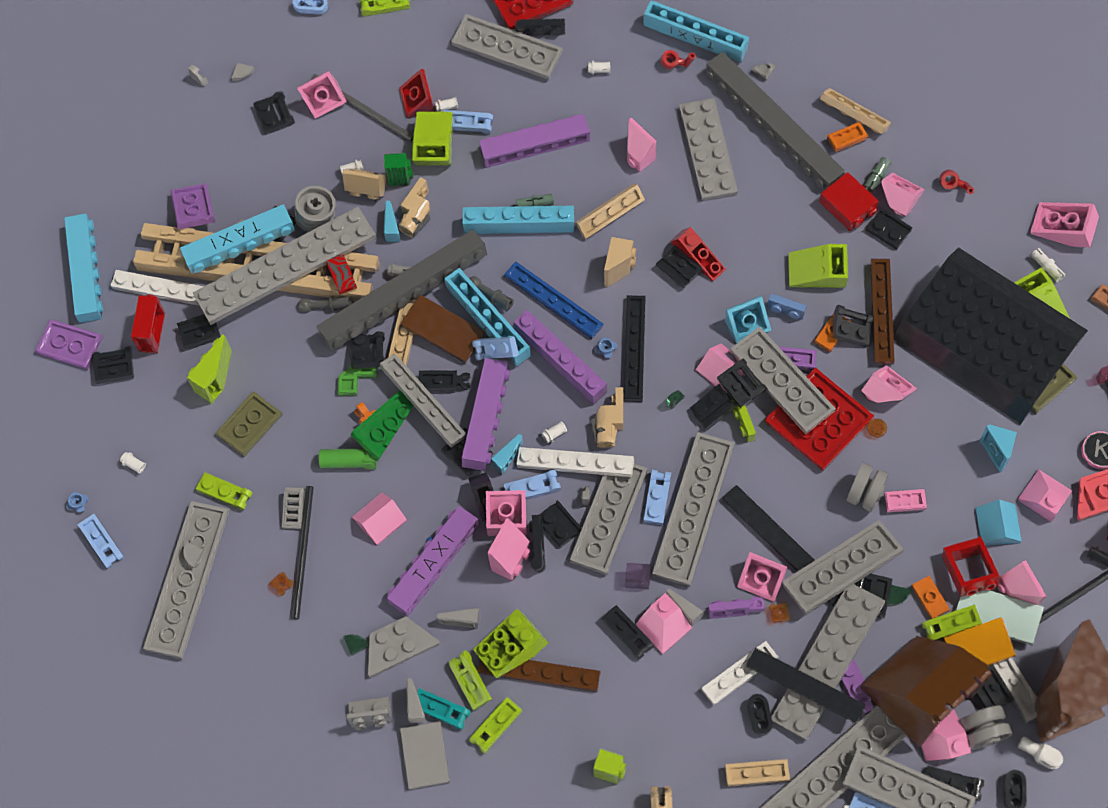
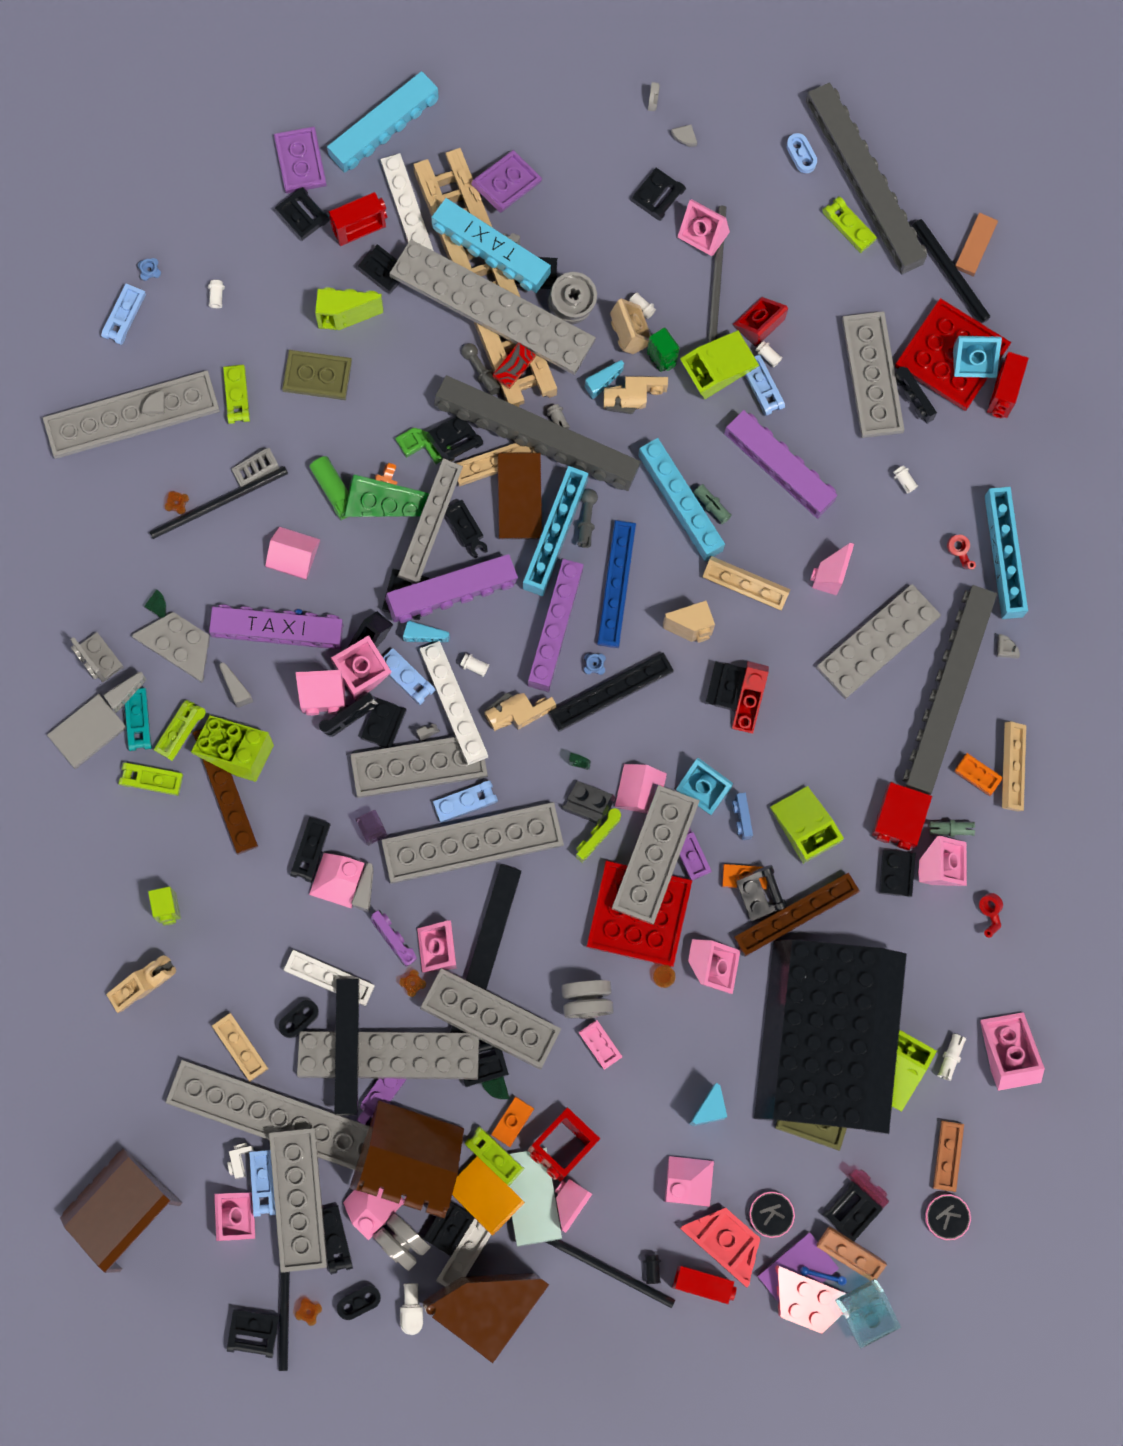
camera: 50 degrees right, 10 degrees up
(495, 347) = (524, 557): light blue plate -> none
(736, 385) = (618, 813): black plate -> none
(998, 523) = (630, 1150): medium azure slope -> none

